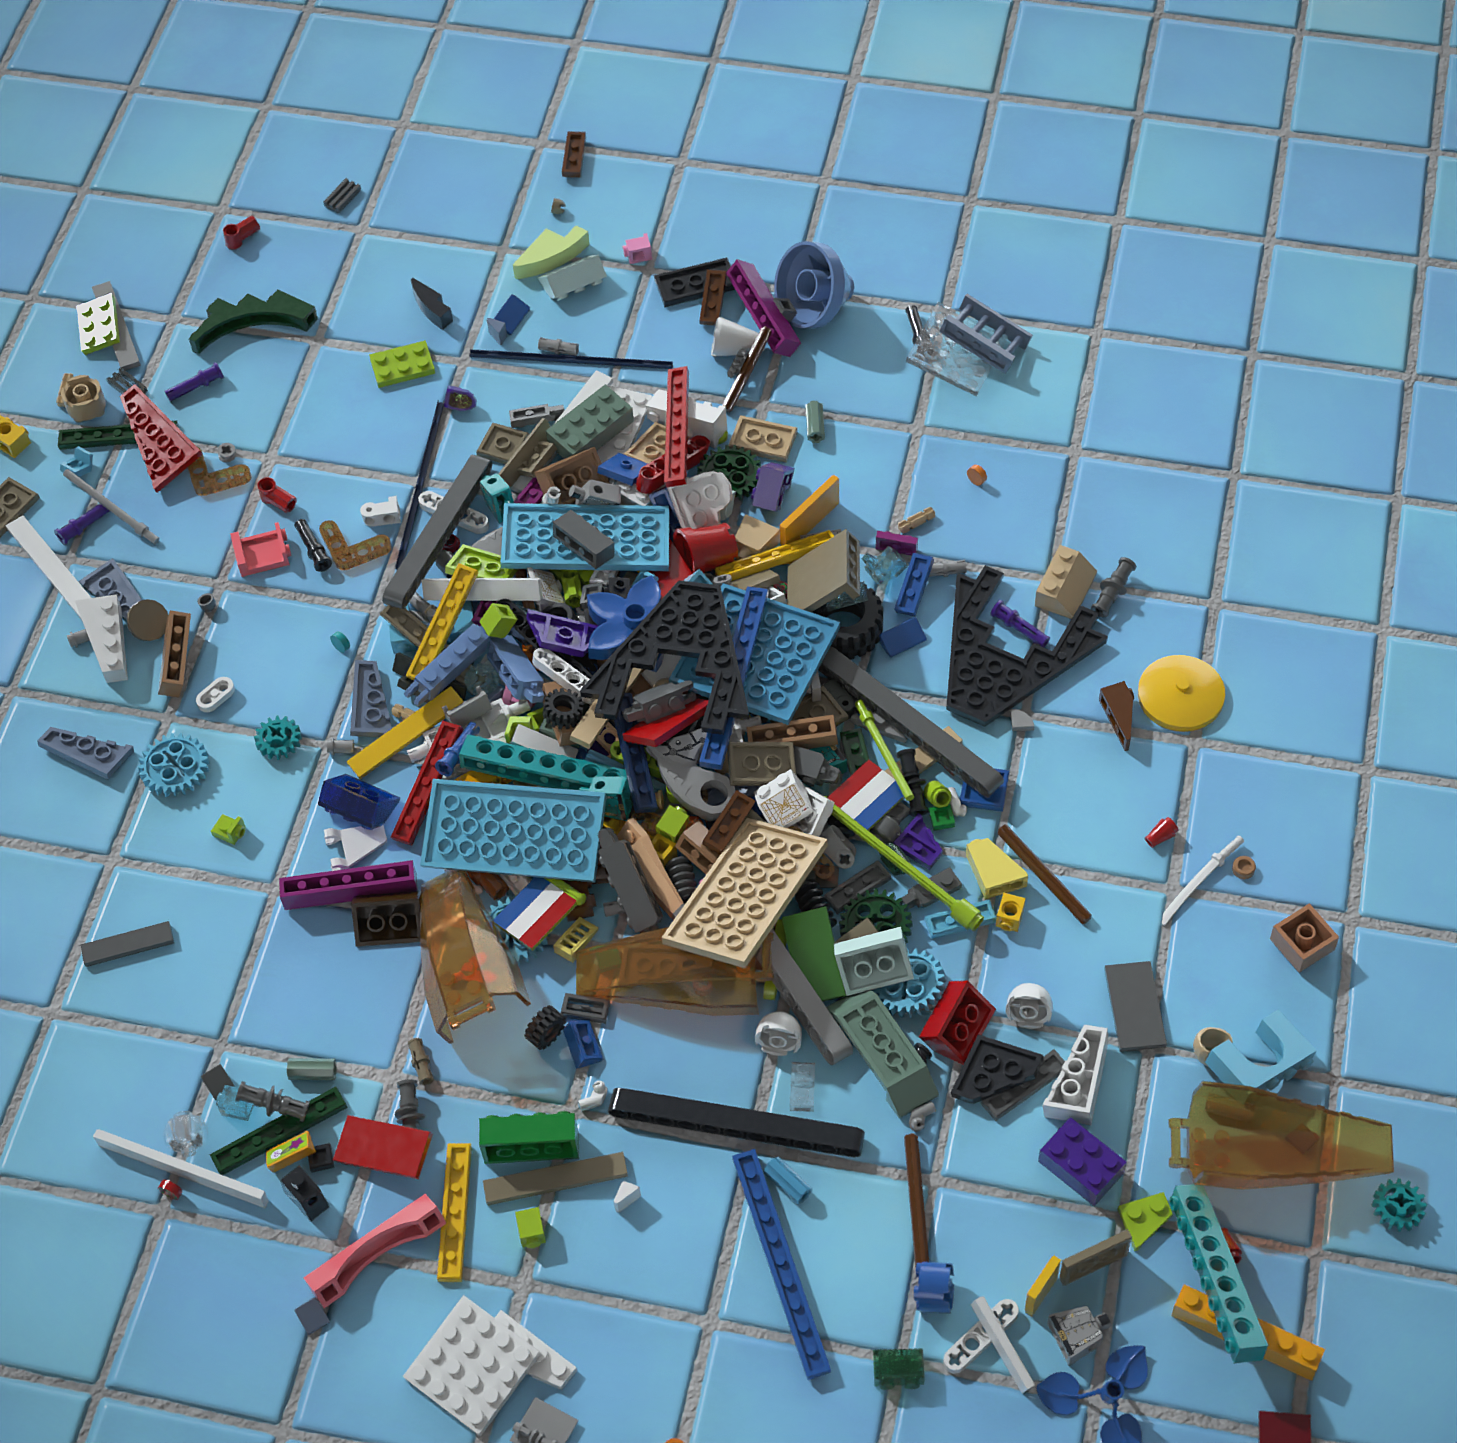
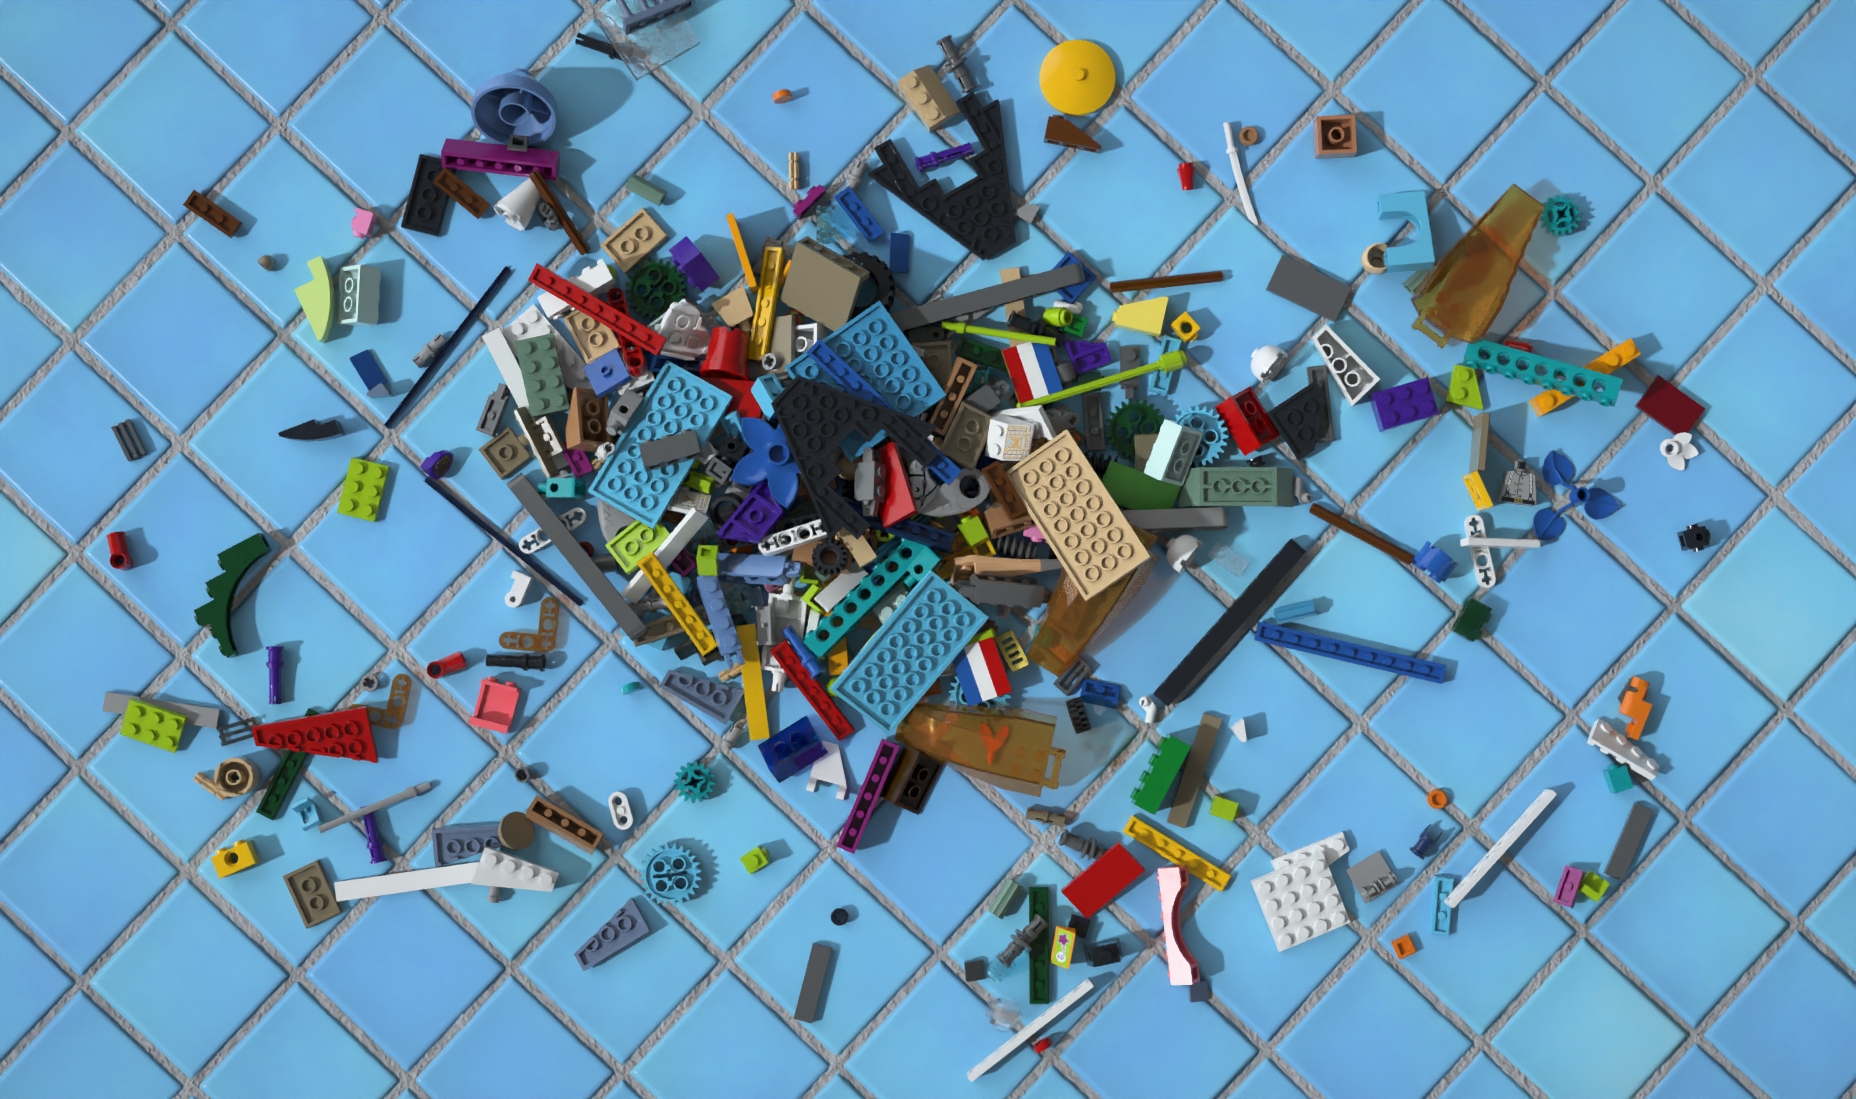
camera: 65 degrees left, 30 degrees up
(205, 926) = (839, 910): none -> black bush

